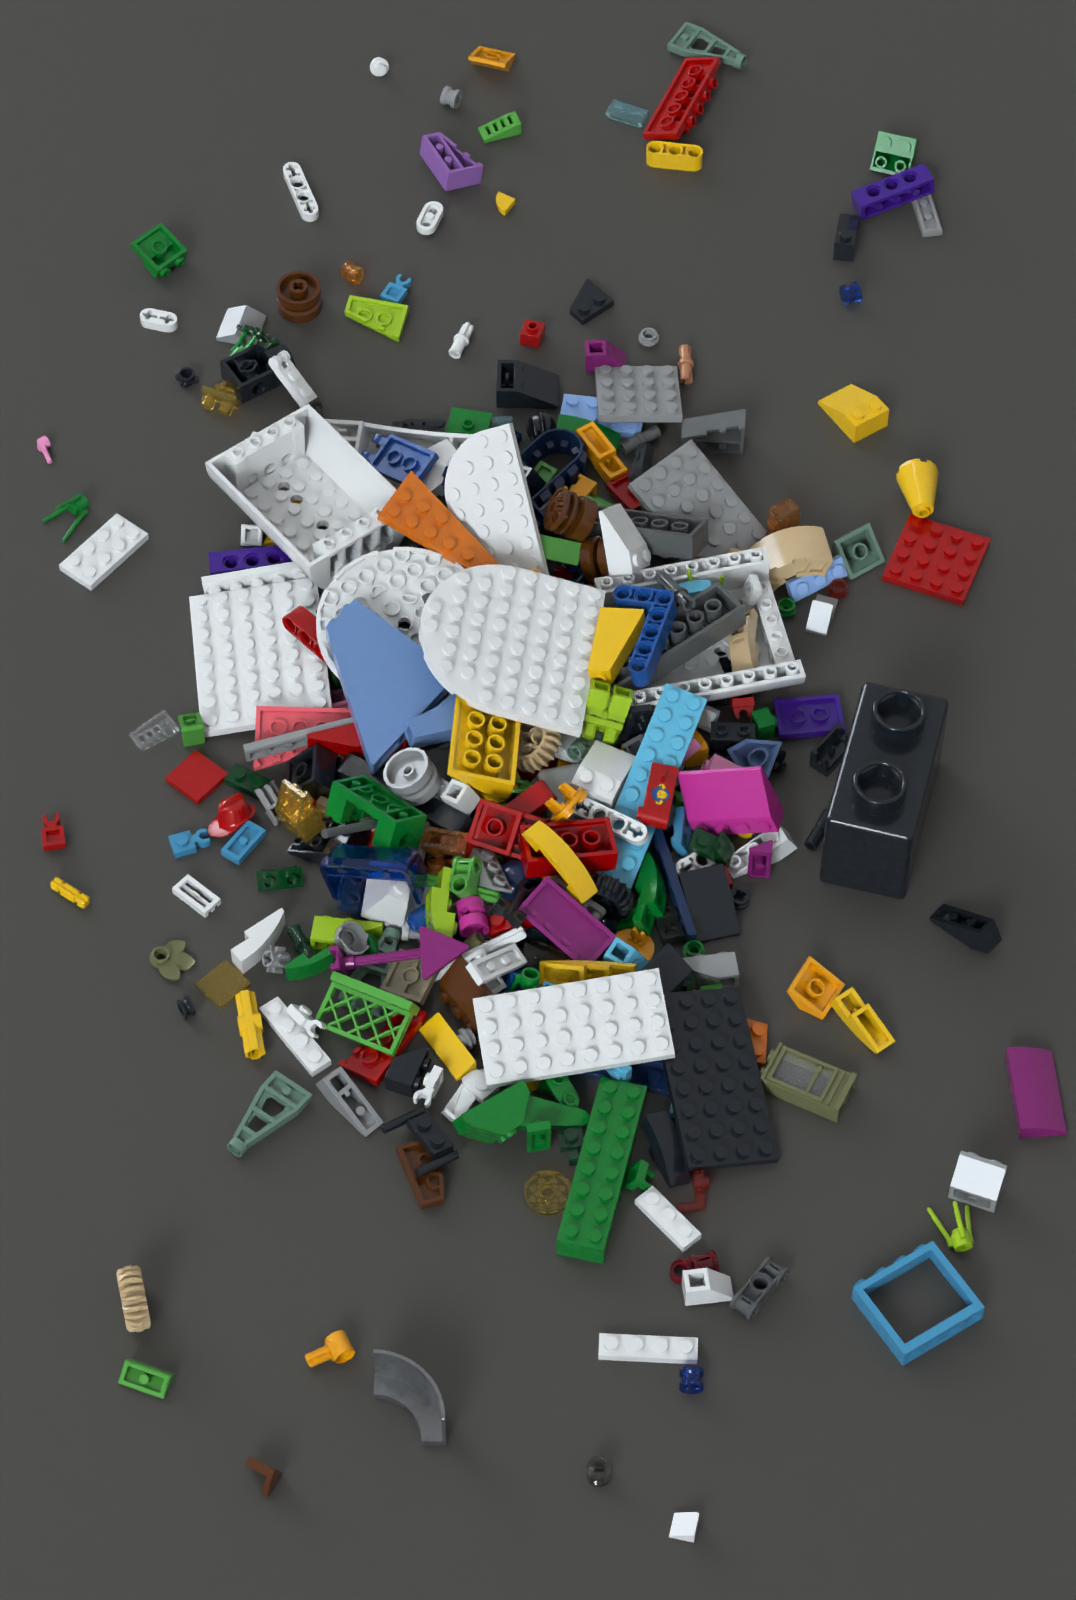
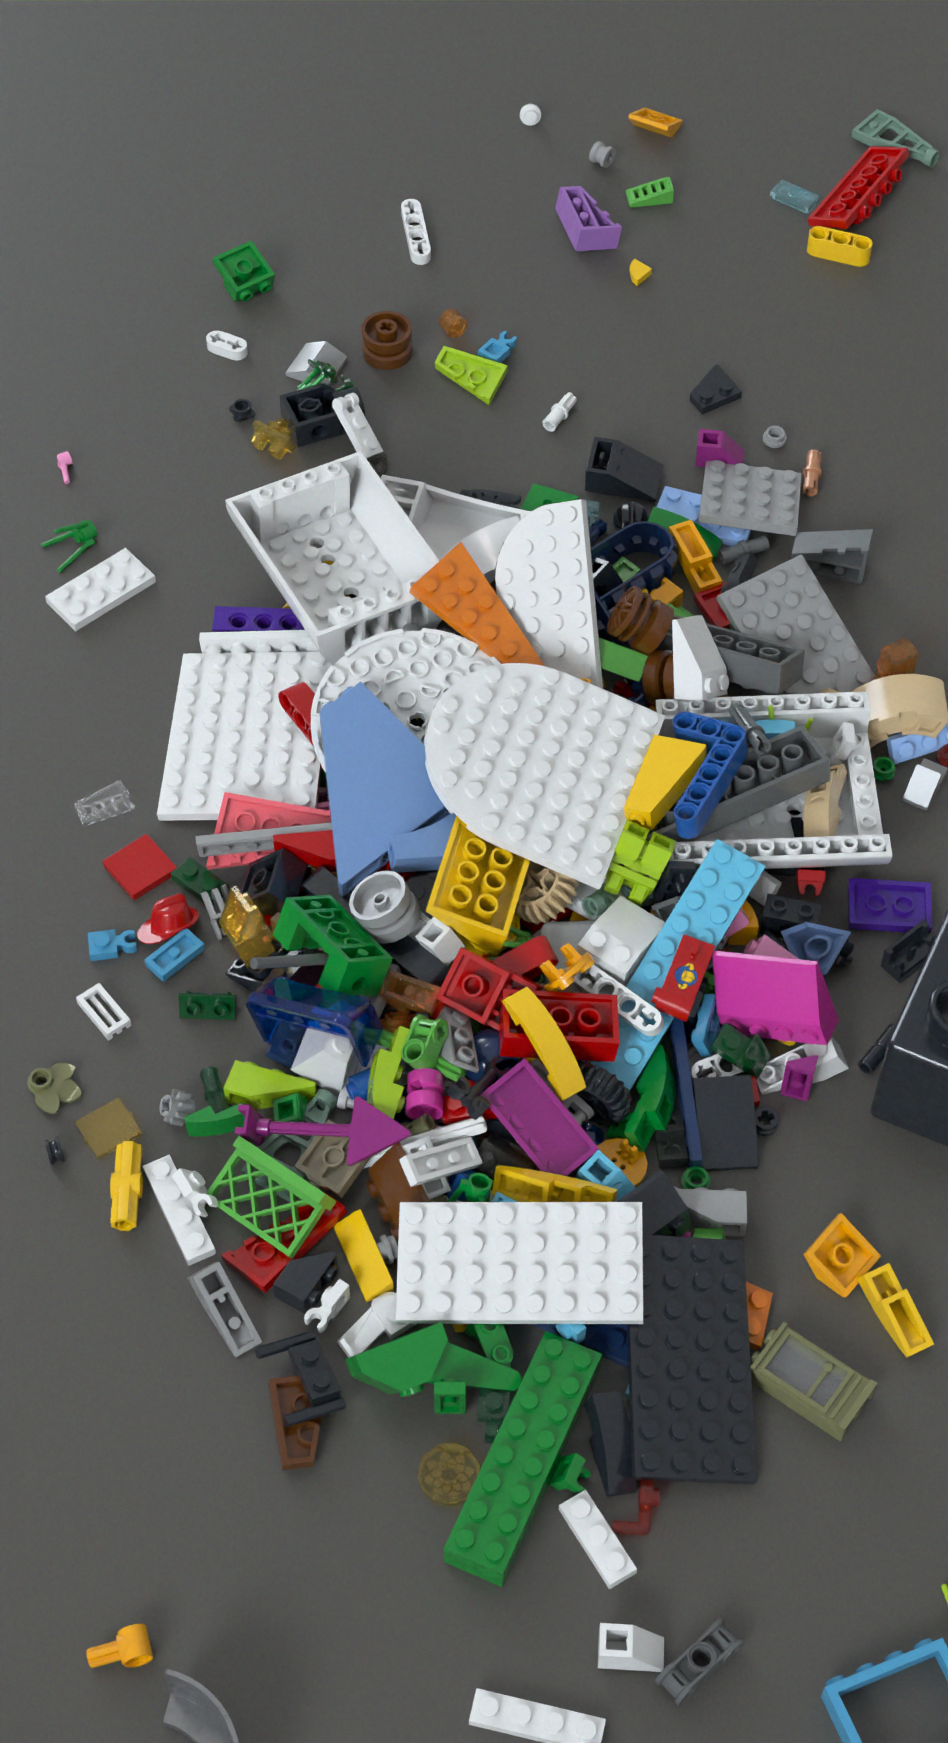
camera: 10 degrees right, 0 degrees up
(191, 729) = (146, 808): bright green slope -> none
(251, 535) = (270, 595): white slope -> none
(258, 940) = (161, 1078): white slope -> none
(283, 1091) = (147, 1281): sand green plate -> none
(351, 938) = (271, 1097): light grey hair -> none
(399, 457) = (458, 525): blue tile -> none
(429, 218) = (552, 276): white plate -> none
(532, 333) = (642, 415): red plate -> none
(694, 1262) = (620, 1612): dark red connector -> none
(764, 723) = (833, 906): green plate -> none

